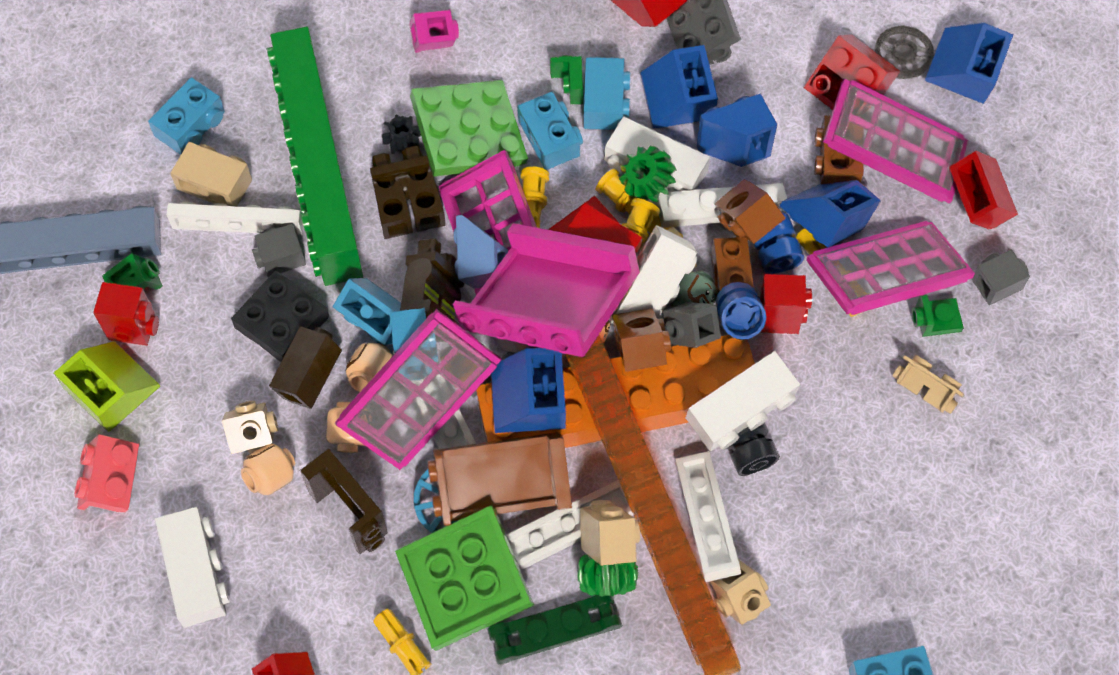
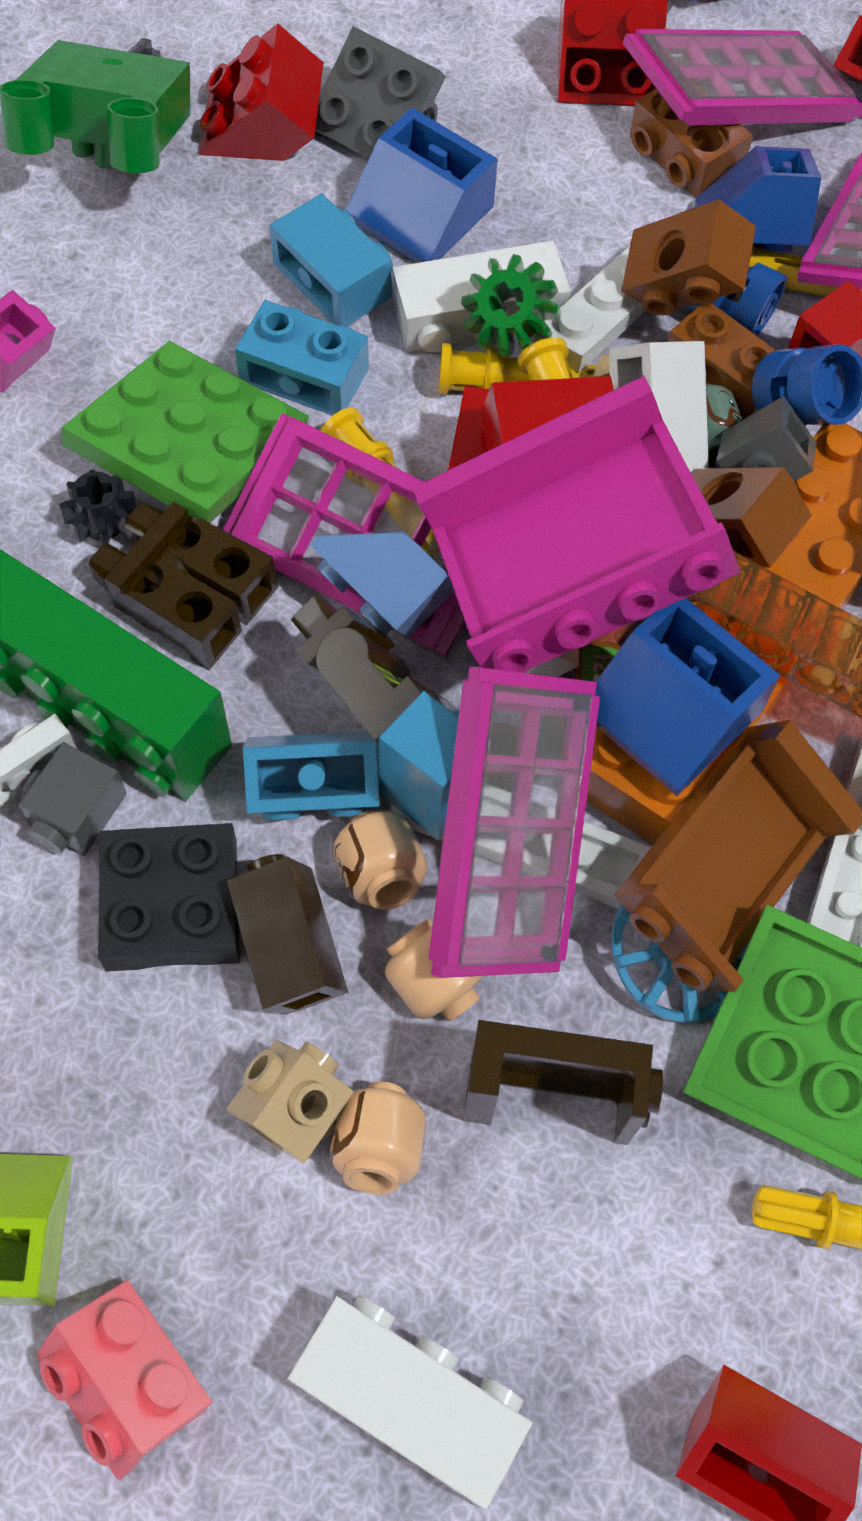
camera: 45 degrees left, 0 degrees up
(571, 71) = (266, 268): green bracket -> none
(738, 131) = (559, 182): blue slope -> none

